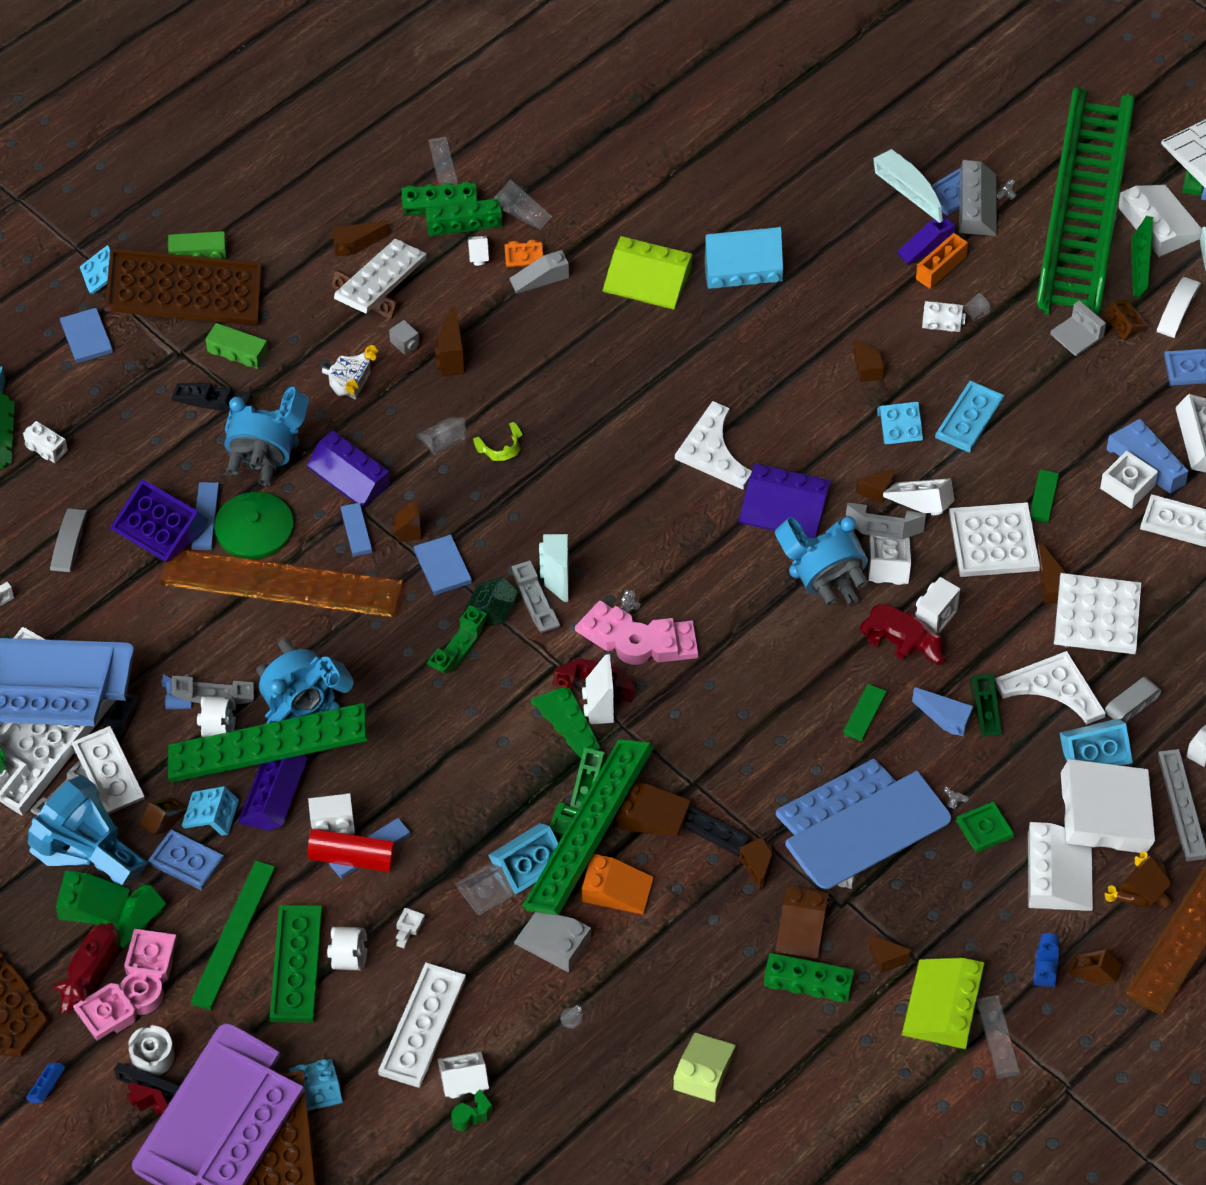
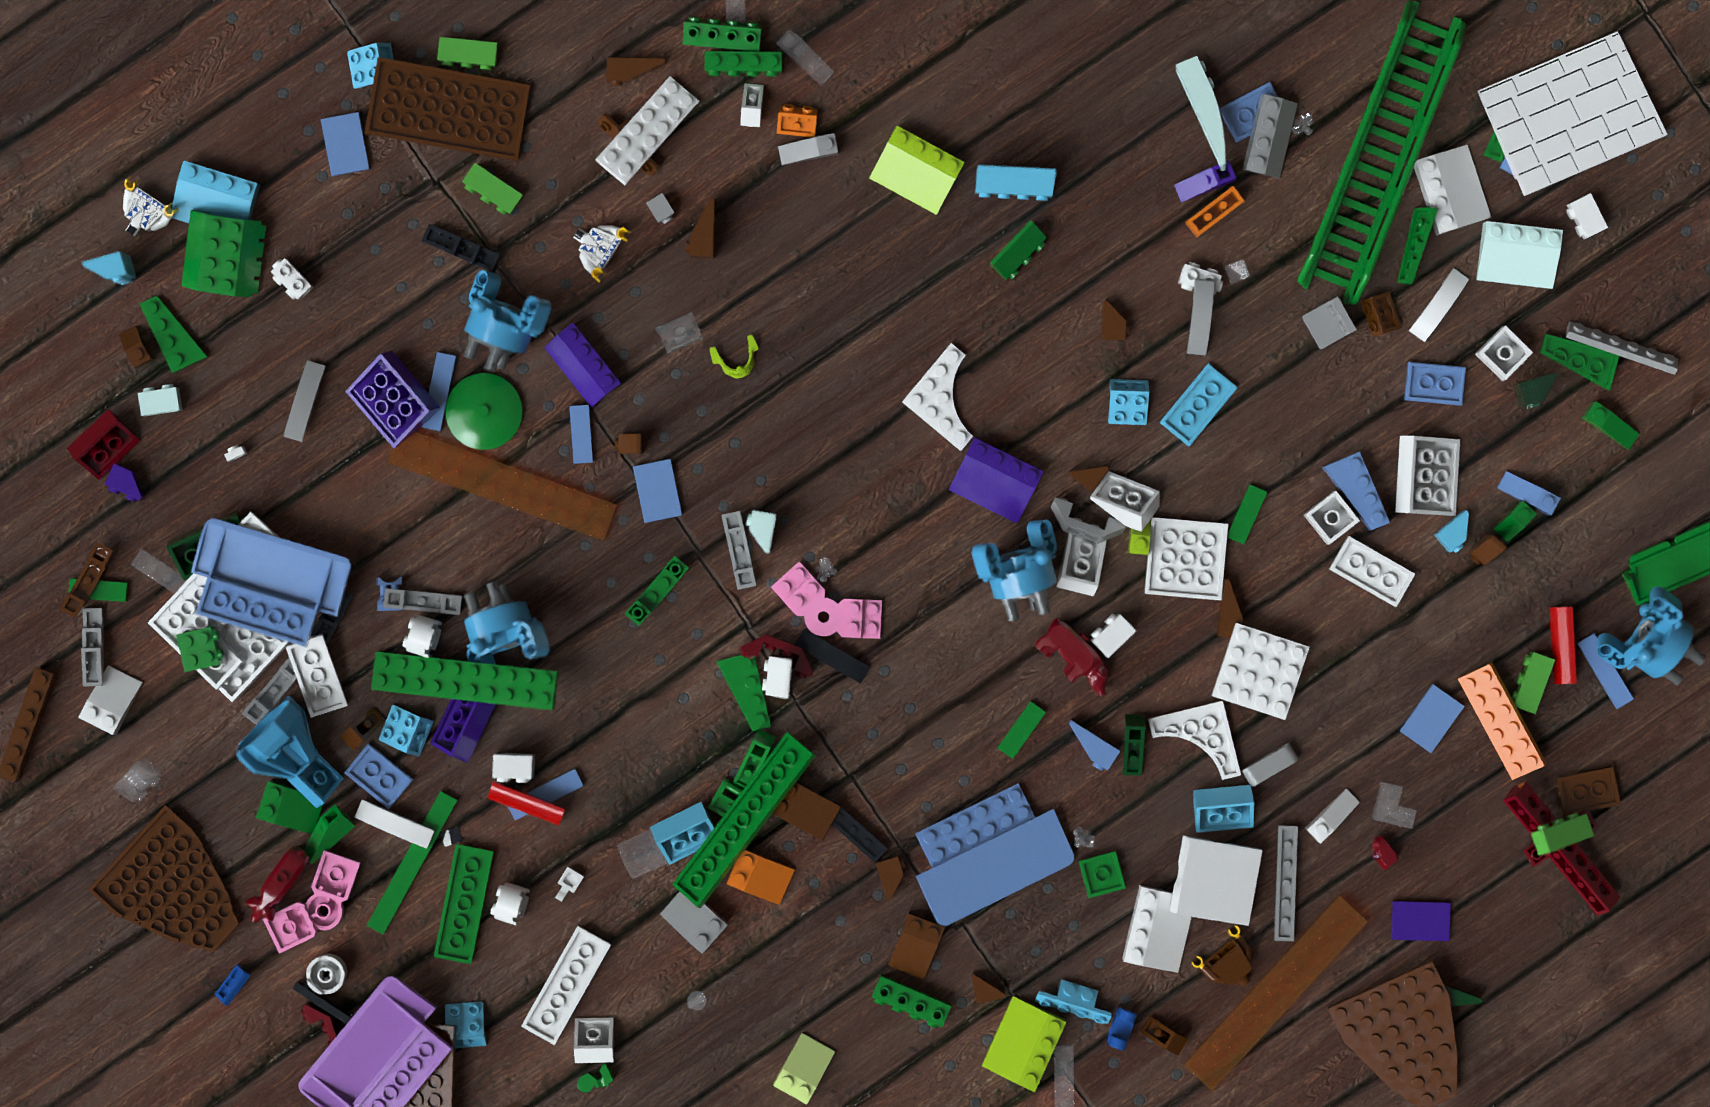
camera: 10 degrees right, 35 degrees up
(209, 896) = (394, 823): none -> white slope
(272, 905) = (451, 836): none -> black sticker
(495, 599) = (695, 546): clear green slope -> none
(656, 675) = (832, 656): none -> black slope
(759, 315) = (1018, 251): none -> green slope
(942, 530) = (1139, 541): none -> lime slope
(952, 342) = (1200, 317): none -> light grey slope
(992, 950) = (1076, 1000): none -> medium azure bracket

